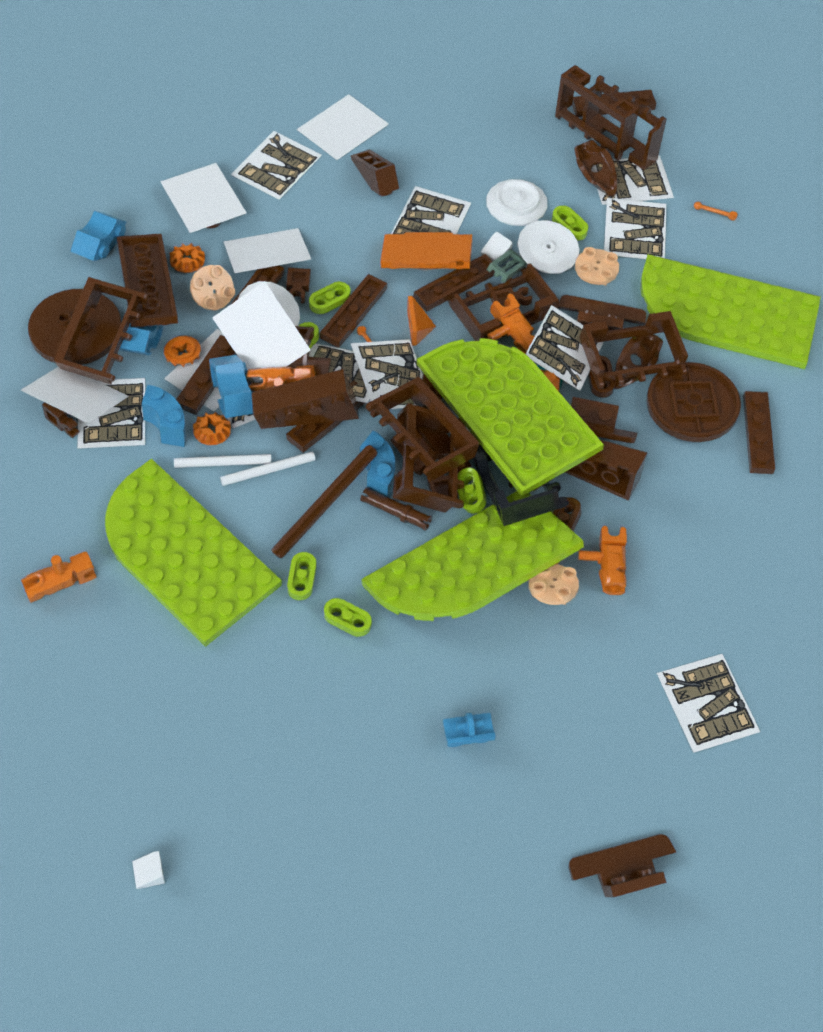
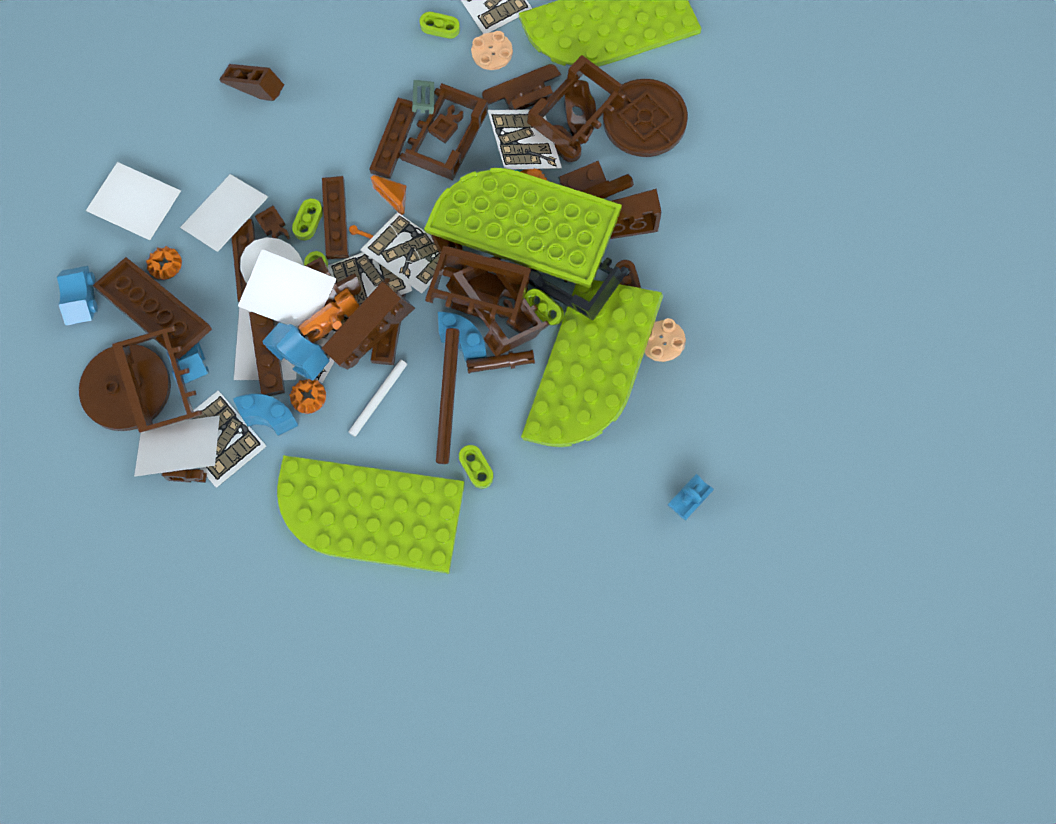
camera: 30 degrees left, 15 degrees up
(58, 576) = (296, 604): orange piece -> none
(148, 870) = (552, 773): white slope -> none
(180, 344) = (222, 342): orange gear -> none
(220, 282) = (212, 267): light nougat plate -> none
(222, 460) = (338, 416): white bar -> none
(276, 165) = (165, 128): sticker -> none
(342, 127) = (190, 57): white sticker -> none
(349, 617) = (535, 472): lime plate -> none
(427, 250) = (351, 126): orange piece -> none
(431, 213) = (328, 95): sticker -> none
(496, 246) = (401, 85): white slope -> none
(513, 323) = (469, 145): orange piece -> none
(516, 202) = (382, 33): white piece -> none
(548, 246) = (441, 58): white piece -> none
(611, 559) = (684, 289): orange piece -> none
(625, 866) = (868, 517): reddish brown plate -> none
(708, 703) = (828, 351): sticker -> none
(758, 432) = (708, 110): reddish brown plate -> none

